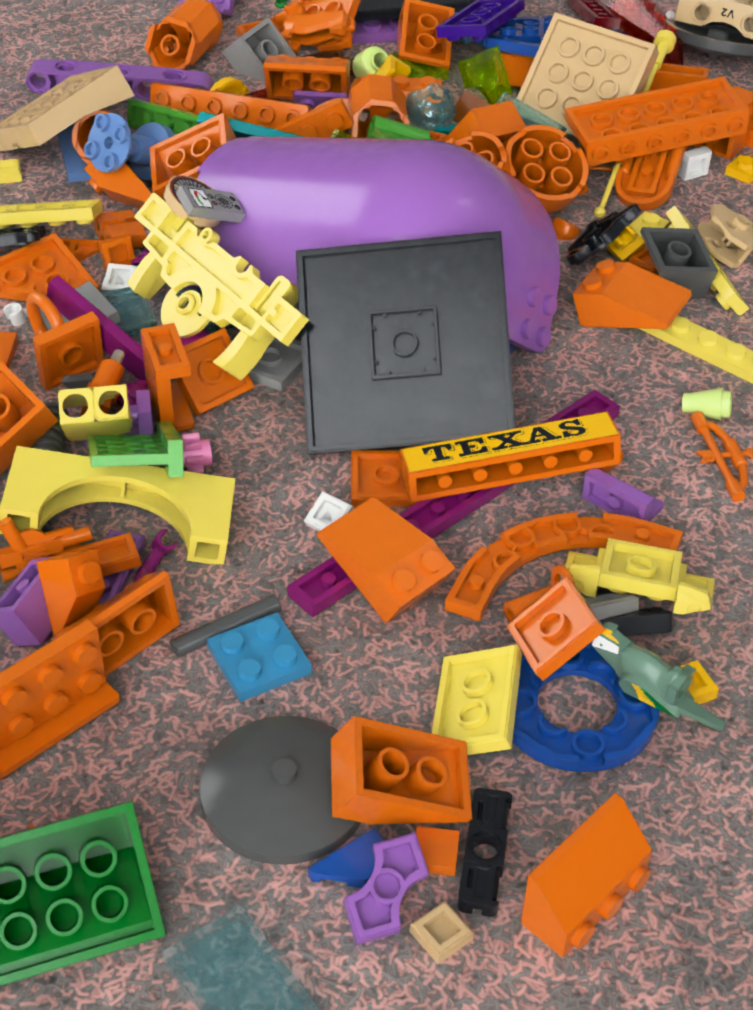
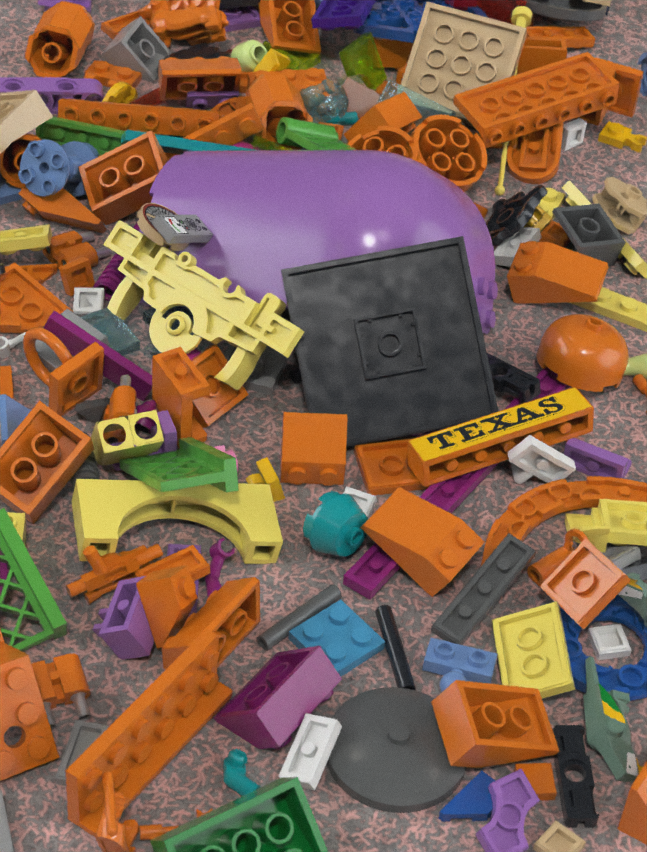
camera: 15 degrees left, 0 degrees up
(91, 786) = (235, 773): none -> teal arm
(169, 712) = (279, 697): none -> magenta slope
(178, 776) = (311, 750): none -> white plate
(221, 68) = (112, 74): none -> orange plate
(242, 472) = (267, 476): none -> yellow tile
(290, 529) = (336, 525): none -> teal cone
(297, 447) = (313, 448): none -> orange slope
(321, 674) = (394, 648): none -> black piece
(390, 700) = (458, 662): none -> medium blue plate
(441, 623) = (483, 590): none -> dark grey tile
(540, 397) = (513, 380): none -> black piece
(541, 795) = (608, 727): none -> sand green animal
(548, 487) = (538, 459): none -> white plate
(576, 700) = (609, 642): none -> white tile
(581, 271) = (506, 251): none -> white plate
(637, 380) = (584, 352): none -> orange cylinder
(732, 71) = (575, 36): none -> orange plate

